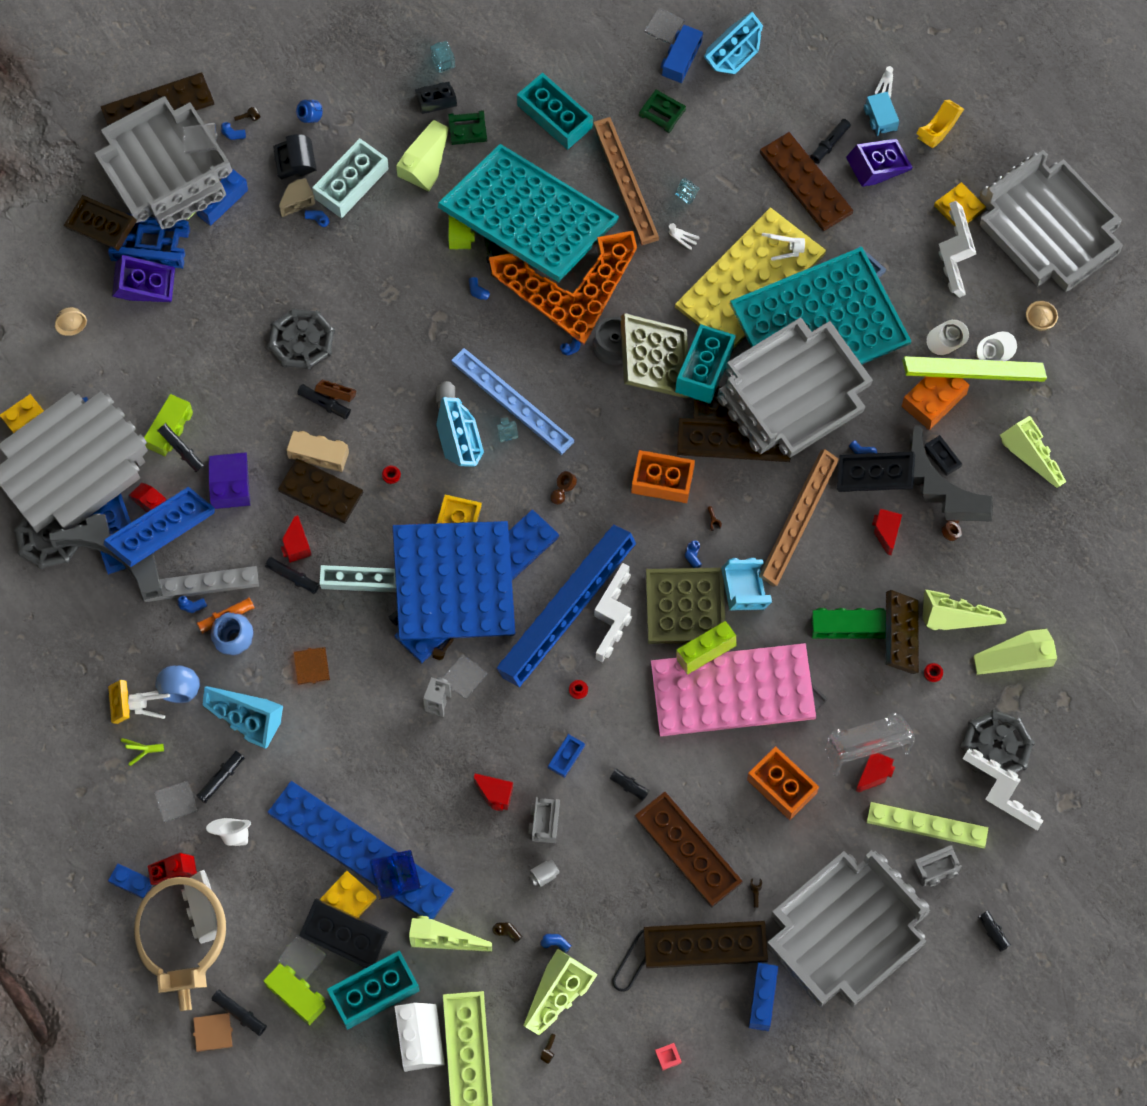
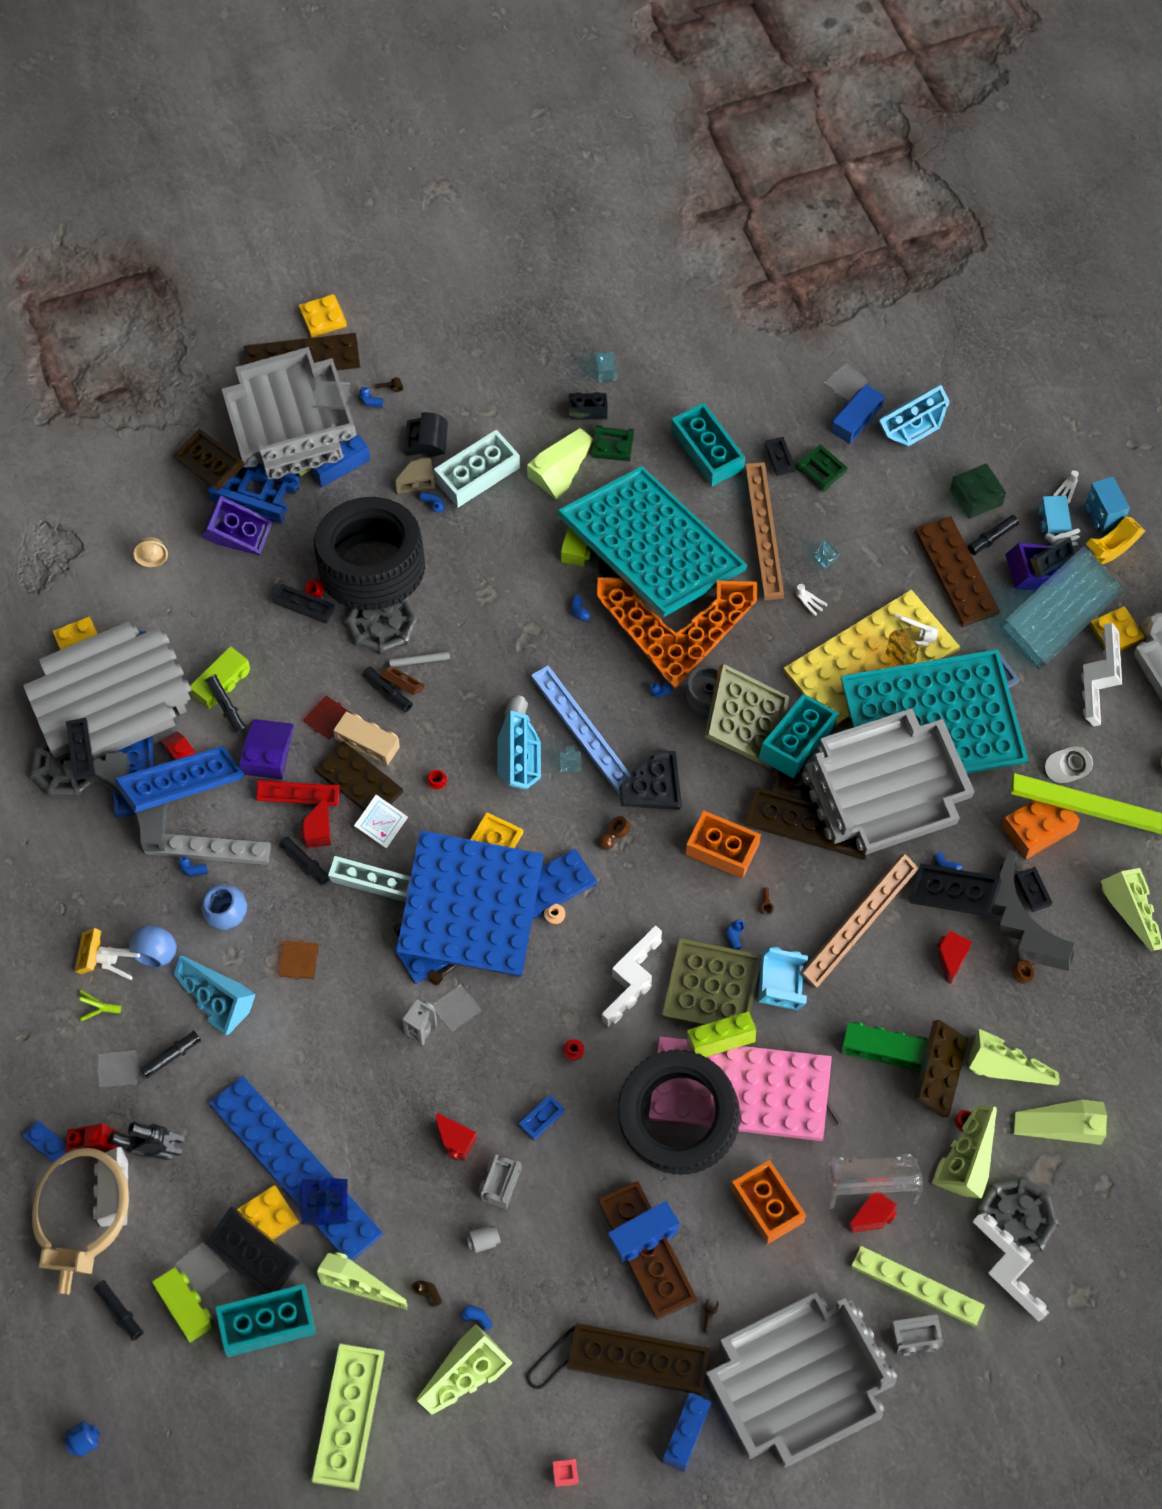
camera: 15 degrees right, 5 degrees down
(62, 519) = (80, 748): none -> black plate
(166, 61) = (322, 315): none -> yellow plate
(213, 1032) = (86, 1325): medium nougat piece -> none
(224, 859) = (148, 1141): none -> black connector
(225, 338) = (304, 603): none -> black plate
(227, 322) = (314, 587): none -> red plate
(230, 830) = (164, 1113): white piece -> none
(238, 608) = (239, 882): orange pin -> none
(268, 514) = (297, 792): none -> red tile
(270, 248) = (361, 522): none -> black tyre
(274, 439) = (325, 717): none -> clear red piece
(309, 111) = (453, 393): blue head -> none
(345, 367) = (419, 659): none -> light grey bar
(351, 524) = (381, 821): none -> white sticker
(419, 1036) = (302, 1383): white slope -> none
(529, 577) = (557, 918): none -> light nougat plate
(546, 1054) = (433, 1437): dark brown hand -> none
(566, 605) = (583, 957): blue brick -> none
(587, 435) = (653, 783): none -> black plate
(622, 108) = (780, 456): none -> black plate
(629, 784) = (601, 1164): black pin -> none
(683, 834) = (644, 1231): none -> blue brick
(688, 681) = (646, 1079): none -> black tyre
(777, 264) = (901, 648): none -> clear yellow brick
(807, 103) = (977, 491): none -> clear green brick
(889, 151) = (1052, 557): none -> black plate
(893, 132) = (1053, 539): none -> white piece
(907, 195) = (1061, 607): none -> clear light blue brick
(925, 93) = (1106, 505): none -> dark azure brick
(945, 705) = (968, 1163): none -> yellowish green wedge
(994, 931) = (963, 1422): black pin -> none
(997, 347) = (1120, 786): white piece -> none

